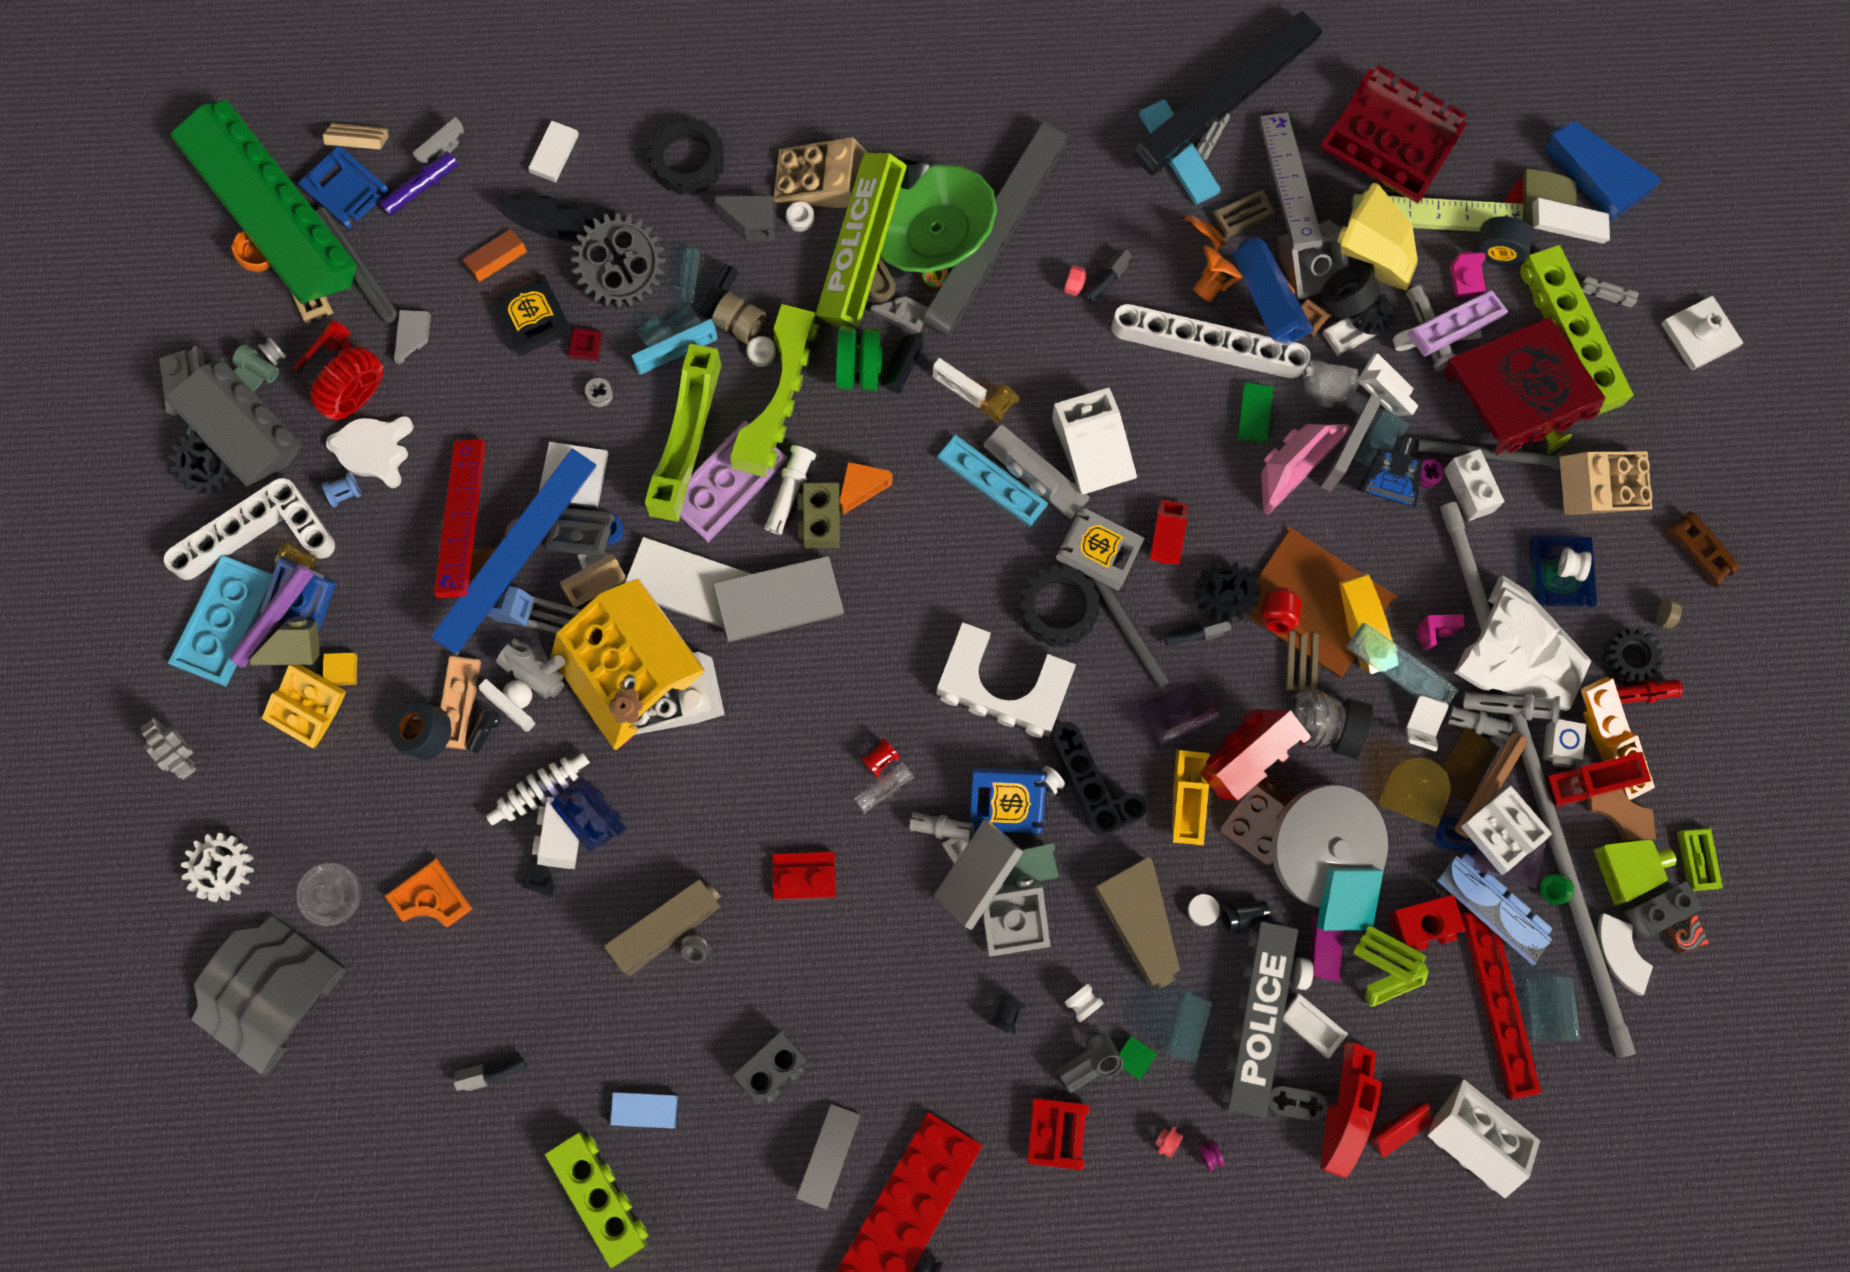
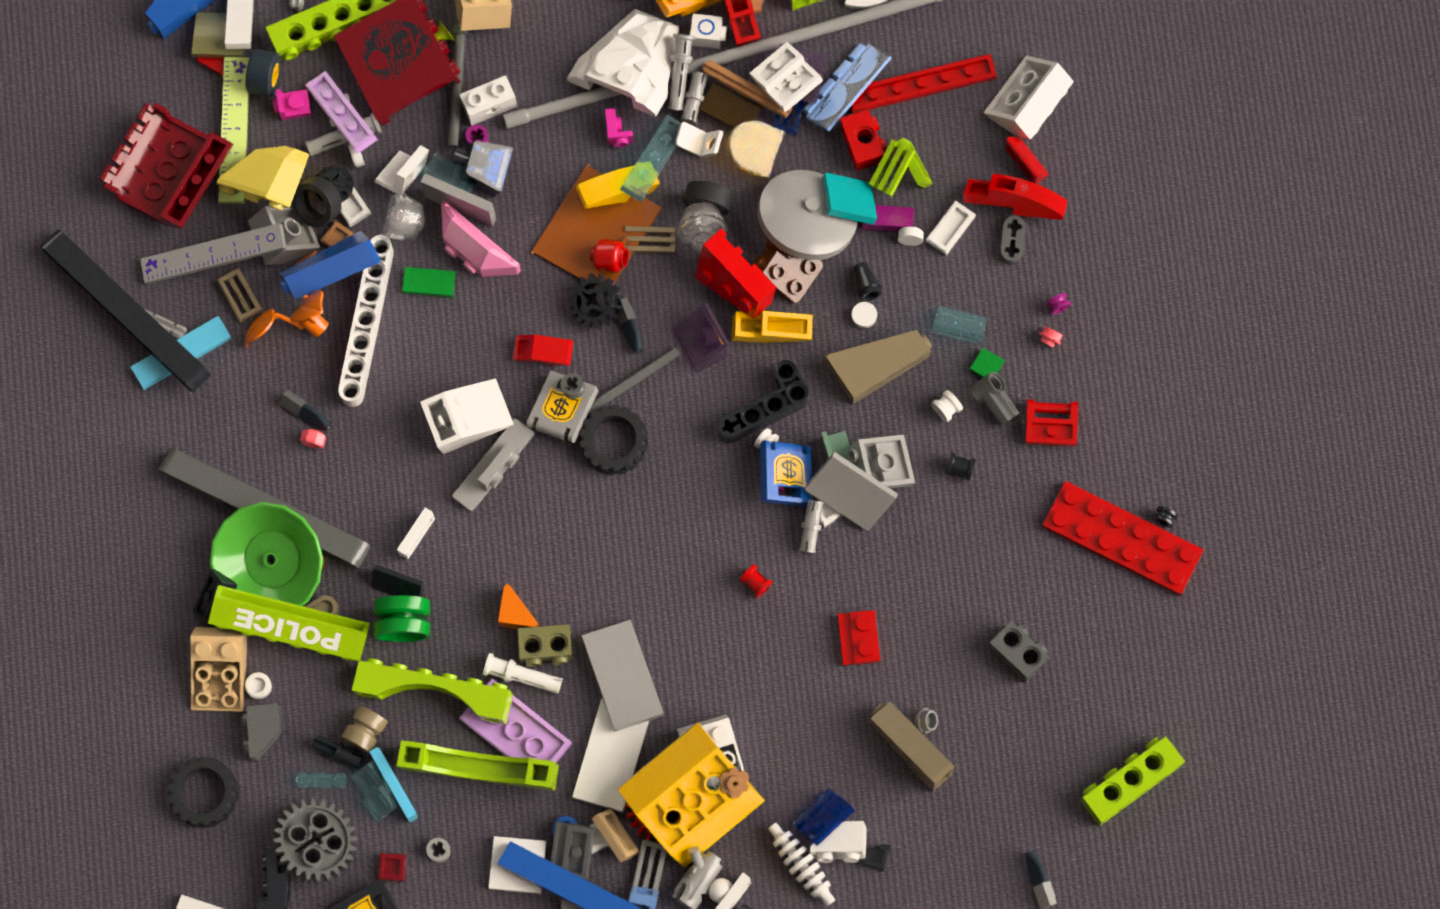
camera: 85 degrees left, 0 degrees up
(644, 1110) = (1059, 752): light blue tile -> none
(761, 351) = (391, 709): white tile -> none
(828, 1157) = (1084, 600): light grey slope -> none
(883, 788) = (780, 576): clear pin -> none
(903, 313) = (349, 586): light grey tile -> none
(992, 481) = (502, 502): medium azure tile -> none
(1000, 402) = (432, 498): clear yellow bush -> none
(1034, 711) = (686, 516): white arch -> none
(1120, 550) = (572, 394): none -> dark grey bush
(1260, 1019) = (949, 268): dark grey brick -> none
(1545, 579) = (564, 29): clear blue container -> none
(1553, 1009) = (924, 43): clear light blue panel -> none
(1557, 889) = (827, 39): green tile -> none
(1574, 564) = (555, 20): white wheel -> none

